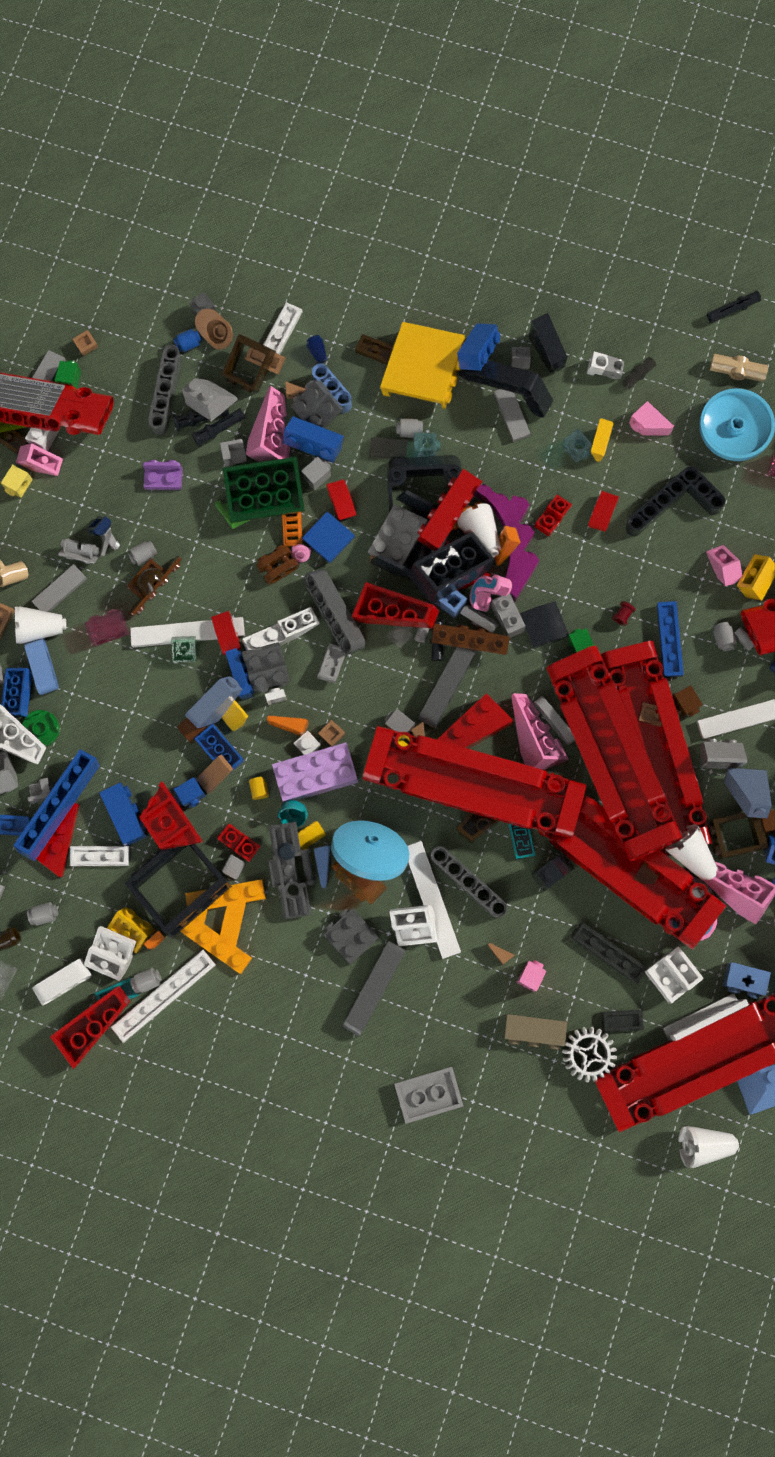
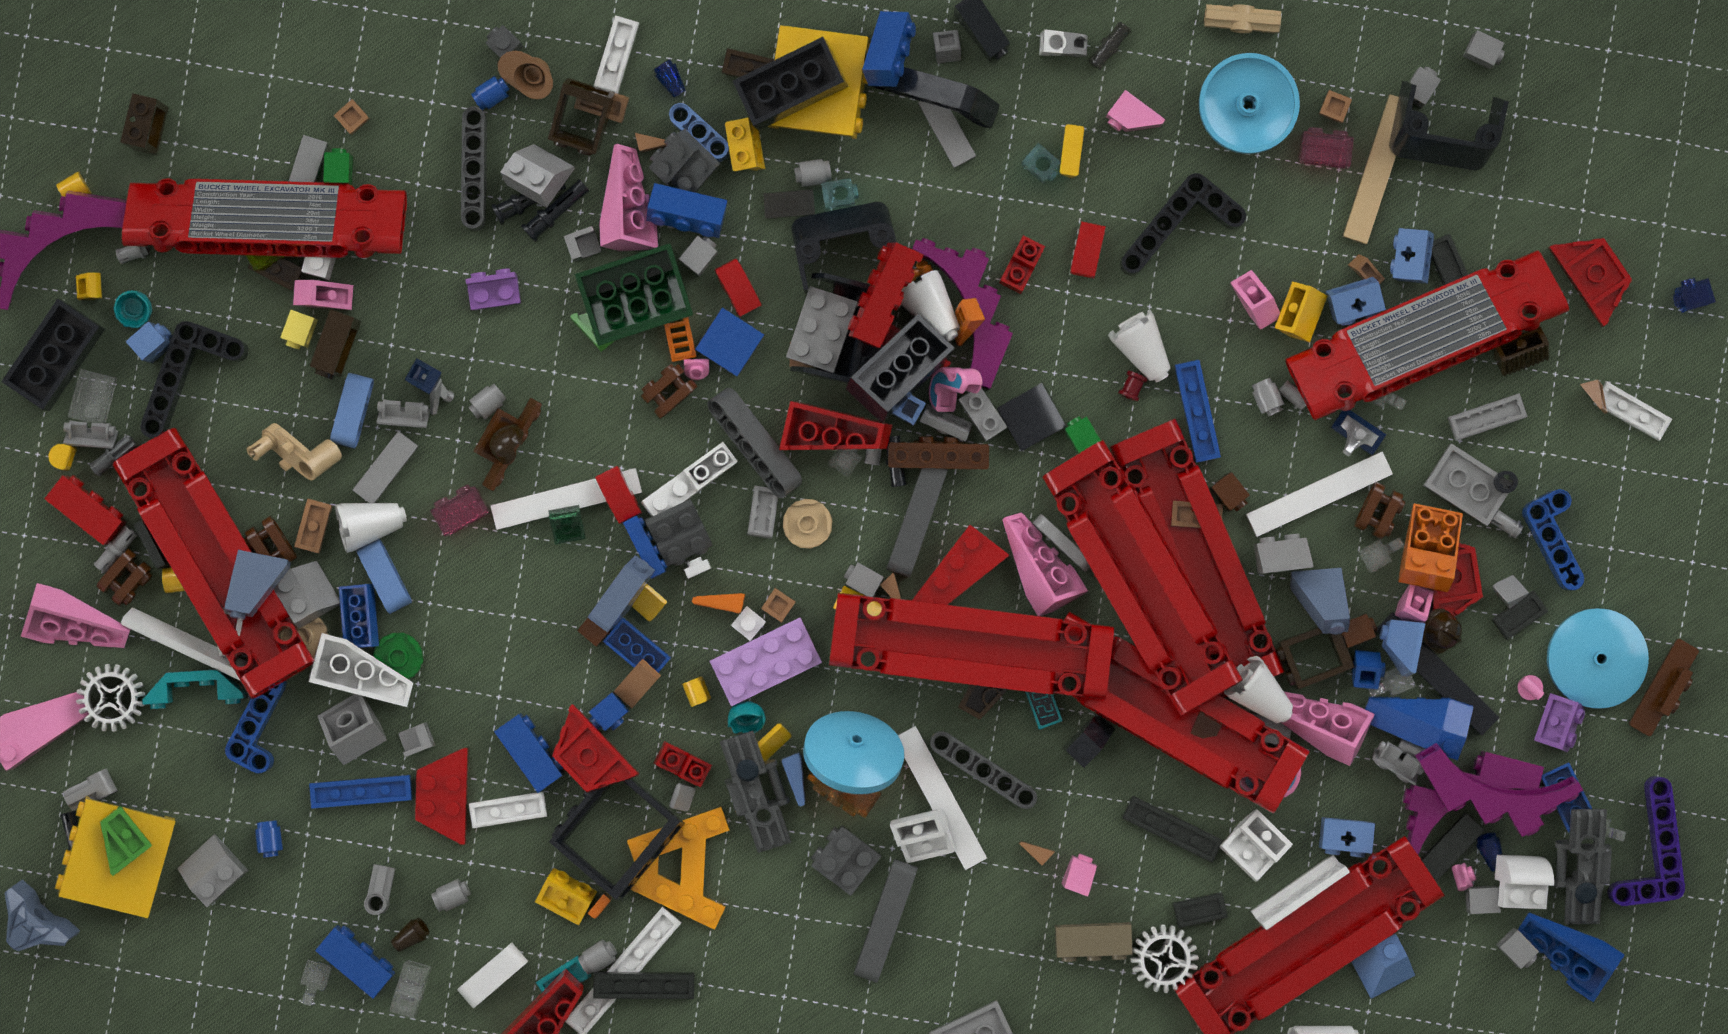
camera: 15 degrees left, 10 degrees up
(39, 493) = (335, 344): none -> dark brown window
(42, 544) = (352, 410): none -> medium blue beam
(56, 805) = (444, 757): blue brick -> none
(110, 953) = (547, 931): white brick -> none
(177, 1008) = (643, 985): none -> pearl dark grey tile
(363, 400) = (744, 145): none -> yellow bracket
(364, 677) = (807, 523): none -> tan tile
(403, 356) = (790, 83): none -> black brick
(636, 585) = (1143, 345): none -> white cone

